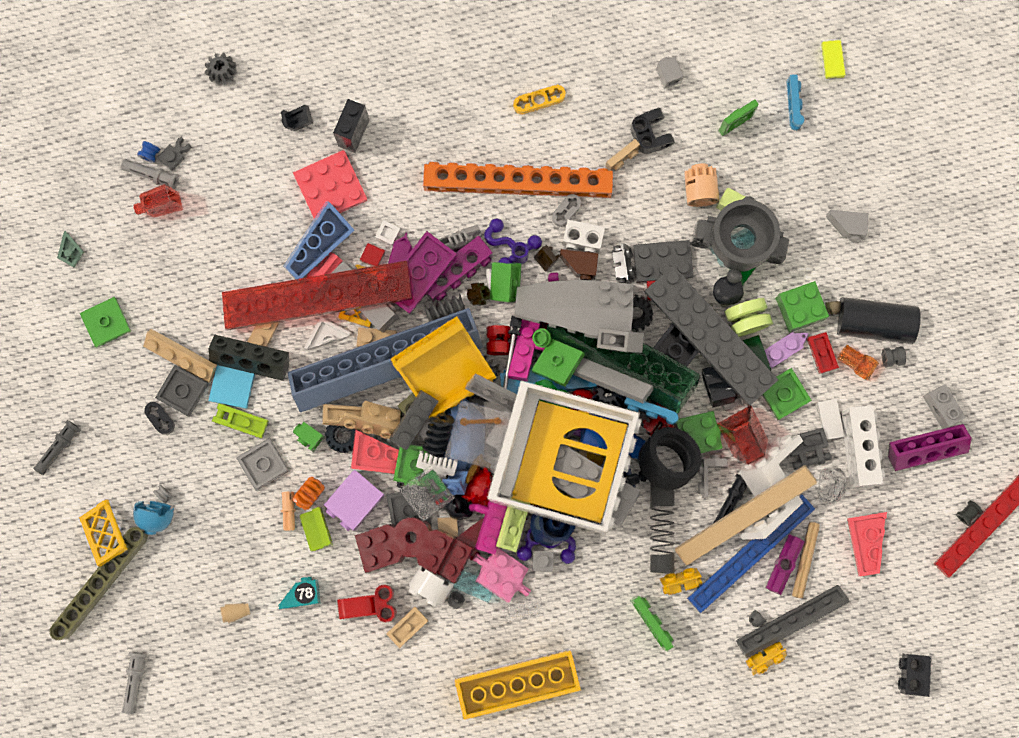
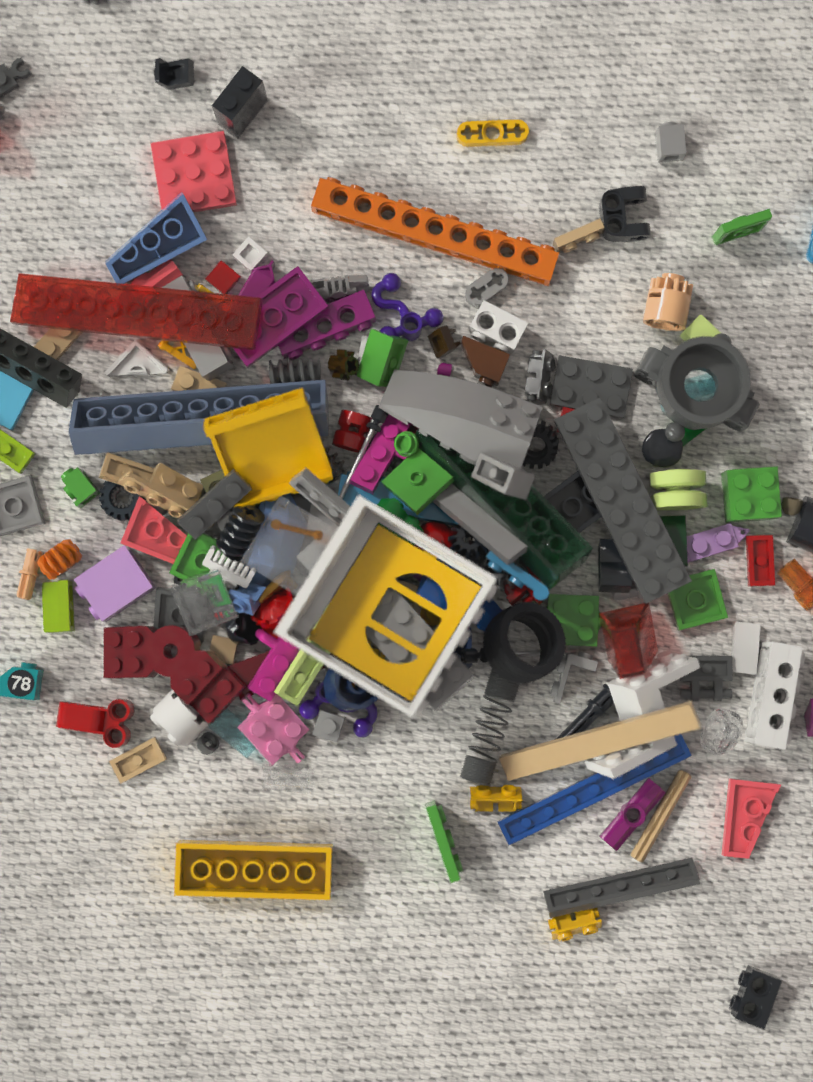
camera: 15 degrees right, 5 degrees up
(756, 619) = (577, 871): dark grey hinge -> none

